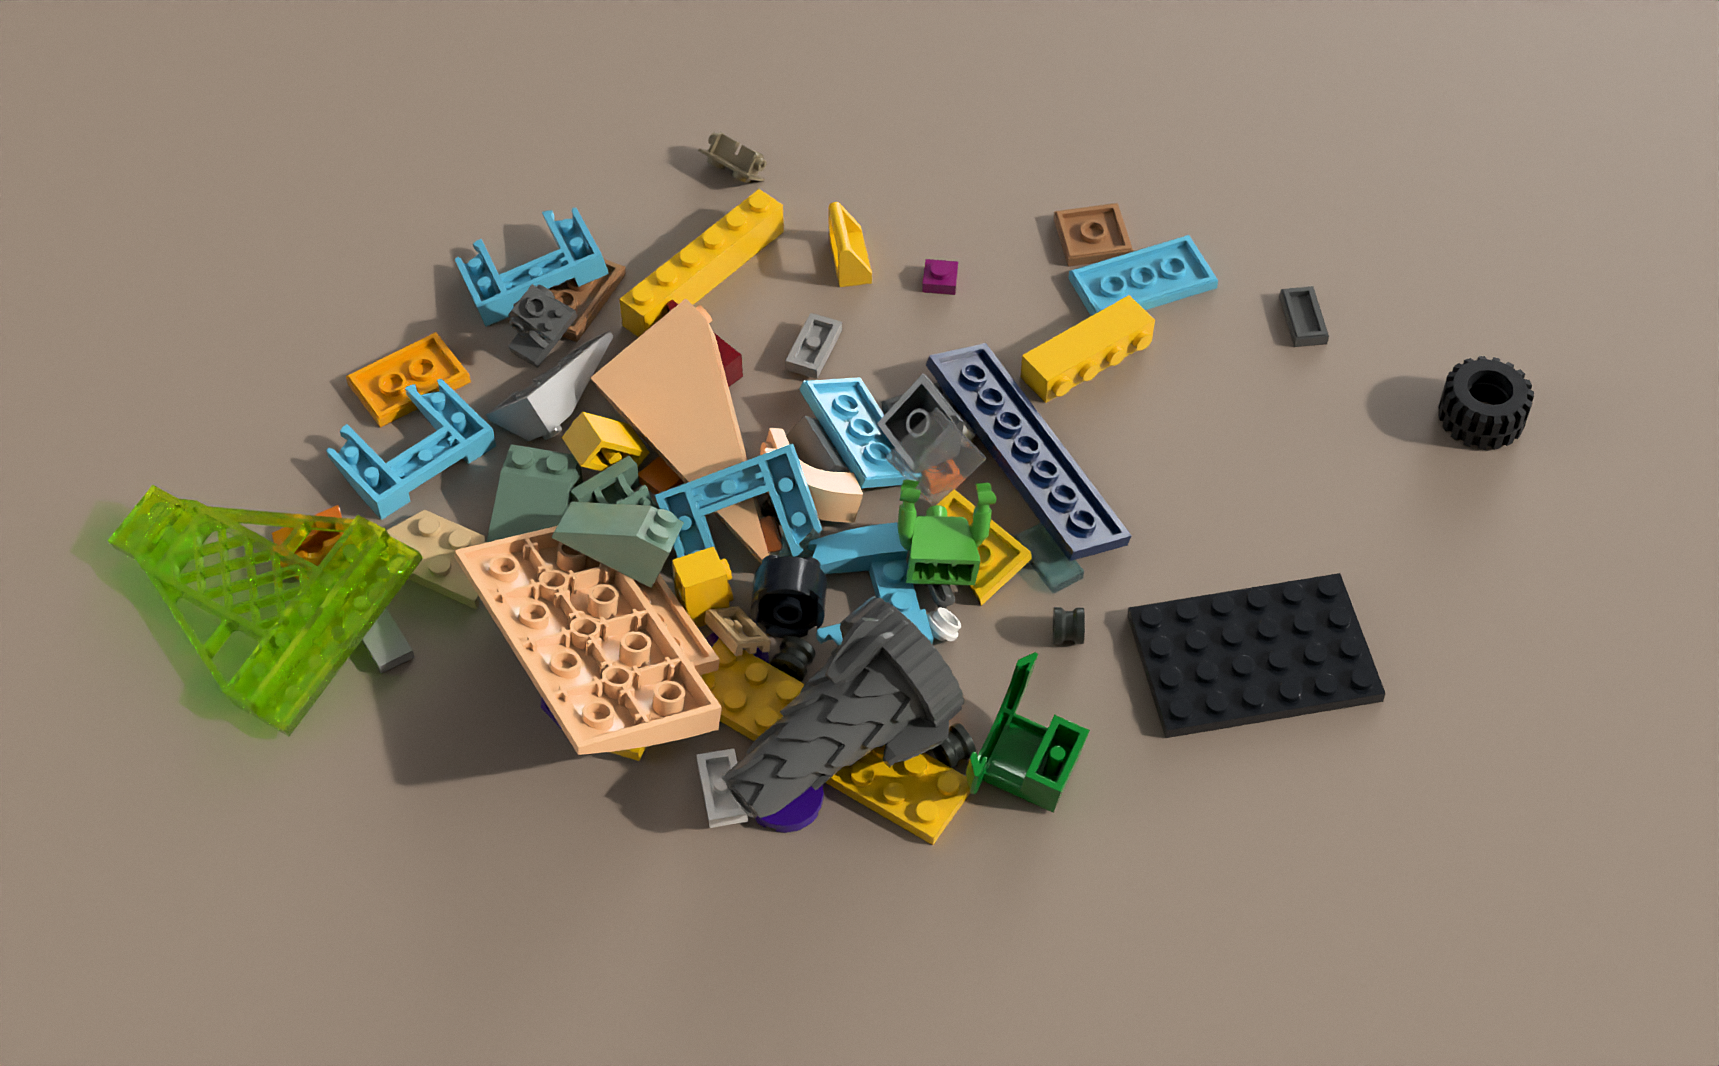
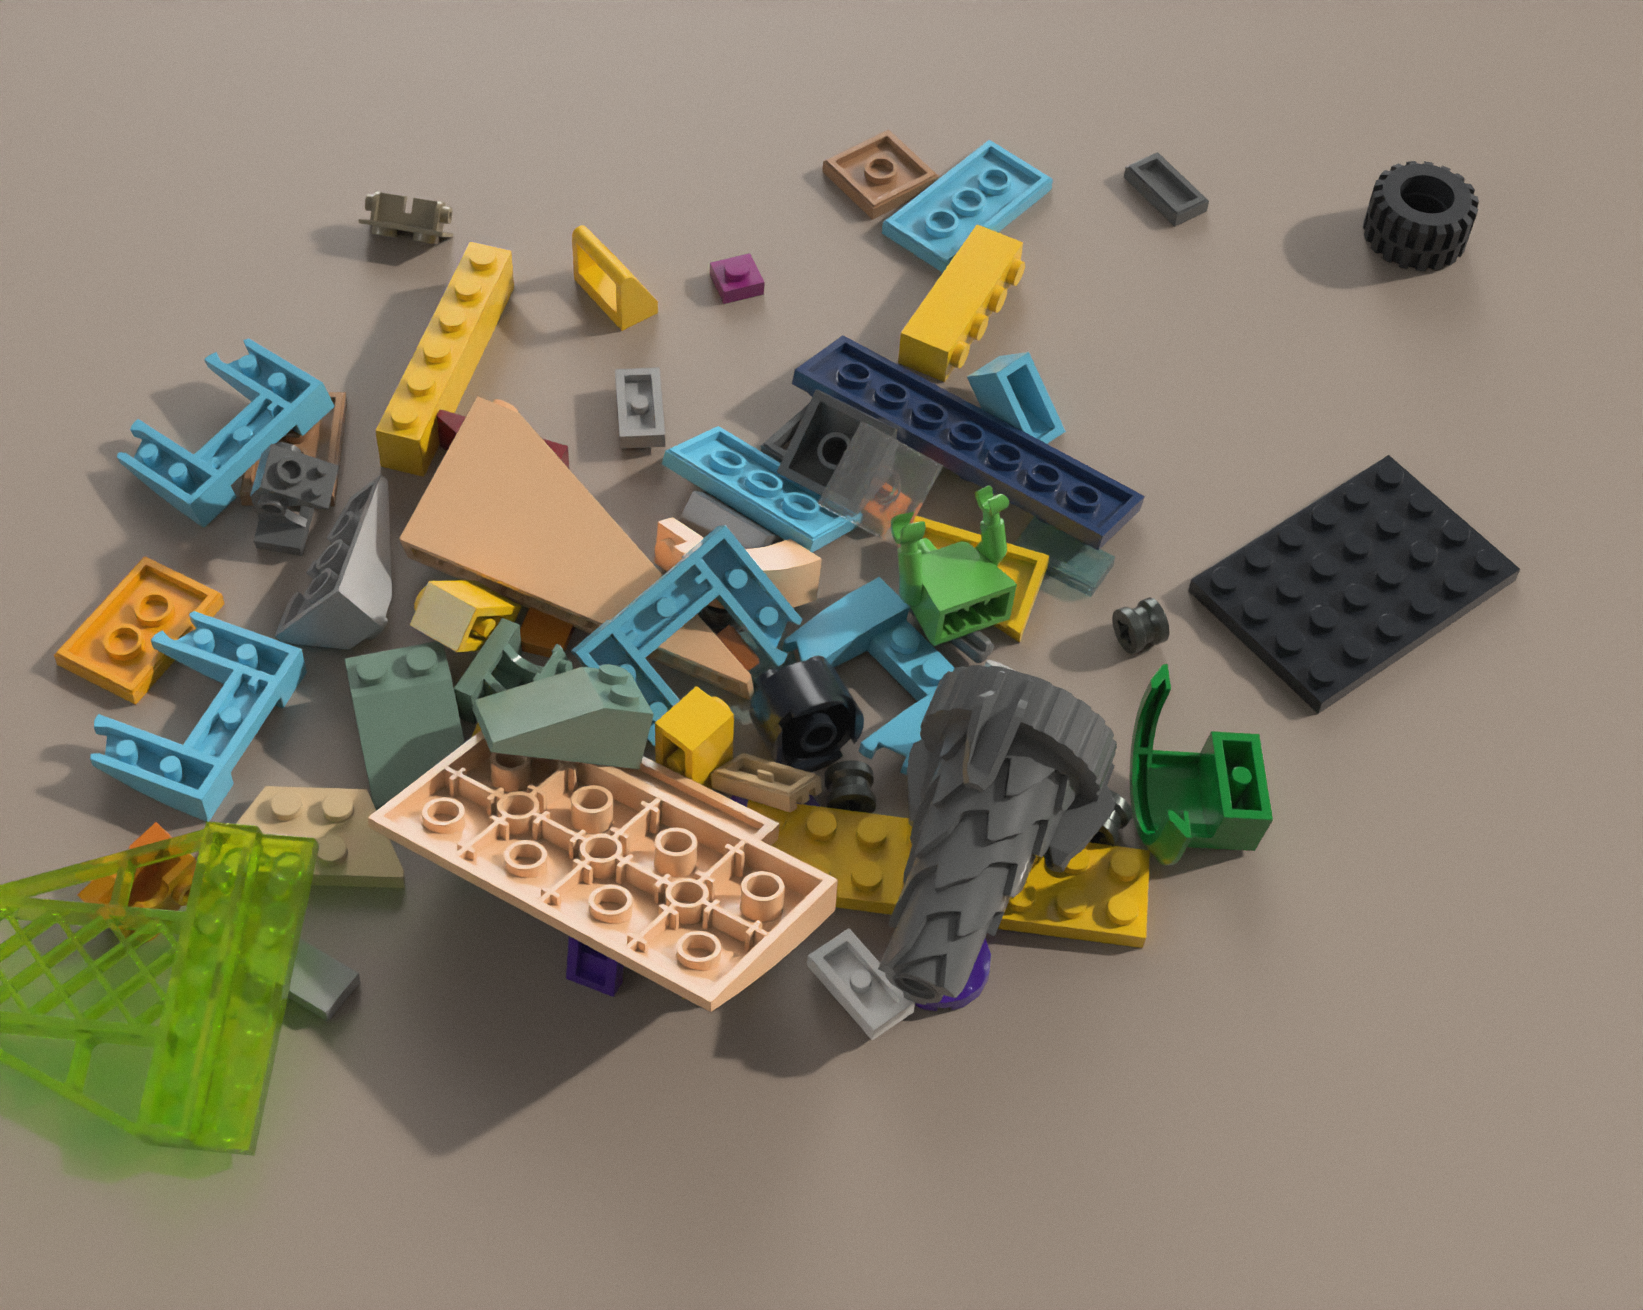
camera: 30 degrees left, 0 degrees up
(1082, 433) = (1016, 394): none -> medium azure slope

